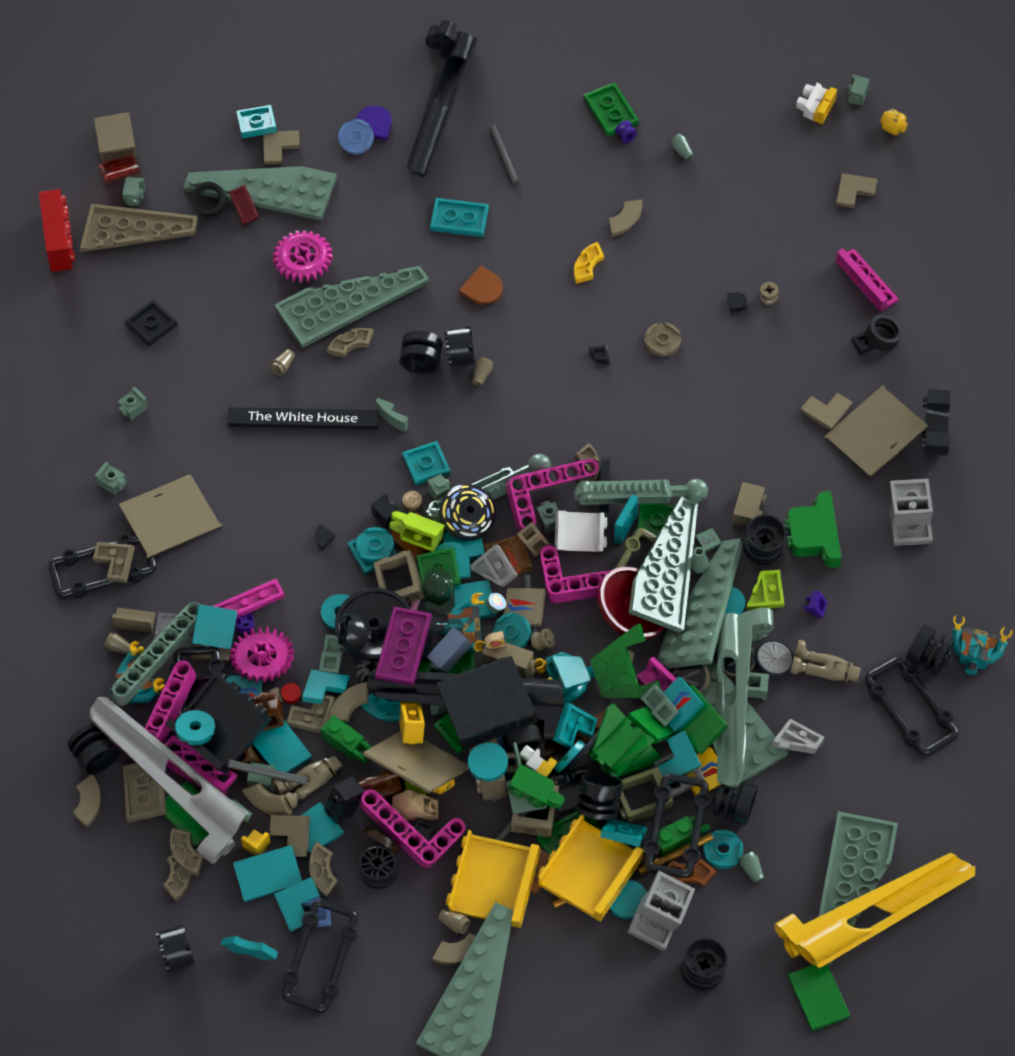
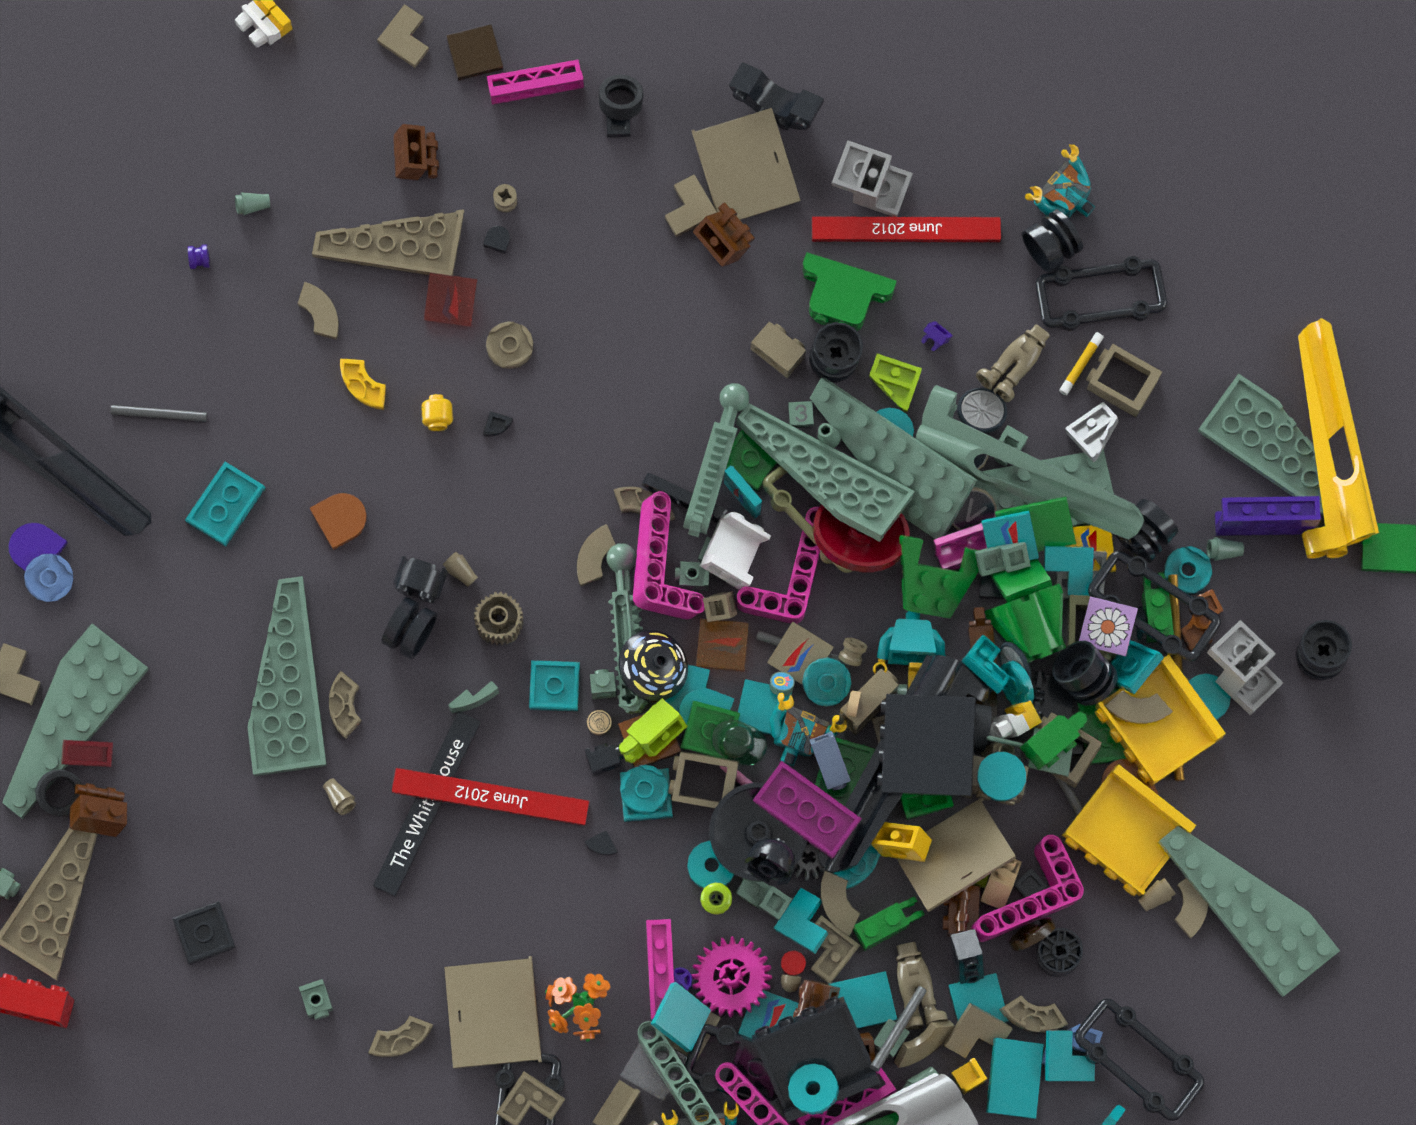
camera: 70 degrees left, 15 degrees up
(110, 478) = (410, 1073): sand green brick -> none
(133, 472) = (401, 1040): none -> dark tan tile
(189, 565) = (585, 1015): none -> orange plant
(203, 225) = (98, 810): none -> reddish brown brick
(303, 259) = (175, 712): dark pink gear -> none
(314, 620) = (717, 889): none -> lime head
(325, 453) = (490, 796): none -> red tile
(456, 406) = (503, 631): none -> dark tan brick
(494, 566) = (736, 664): light grey wing -> none
(527, 448) = (592, 555): none -> dark tan tile
(588, 313) = (437, 413): none -> yellow head
(590, 848) = (1138, 710): none -> dark tan tile
(610, 108) = (153, 259): green tile -> none
(643, 796) = (1108, 625): none -> tile
(675, 289) = (450, 299): none -> clear red tile
(700, 246) = (404, 244): none -> dark tan wing
(769, 221) = (411, 150): none -> reddish brown brick
(789, 877) = (1267, 515): none -> dark purple panel
(813, 434) = (724, 235): none -> reddish brown brick
(845, 762) = (1114, 397): none -> dark tan window
(848, 713) = (1081, 363): none -> yellow bar
(867, 235) = (474, 52): none -> dark brown tile
(888, 556) = (906, 229): none -> red tile

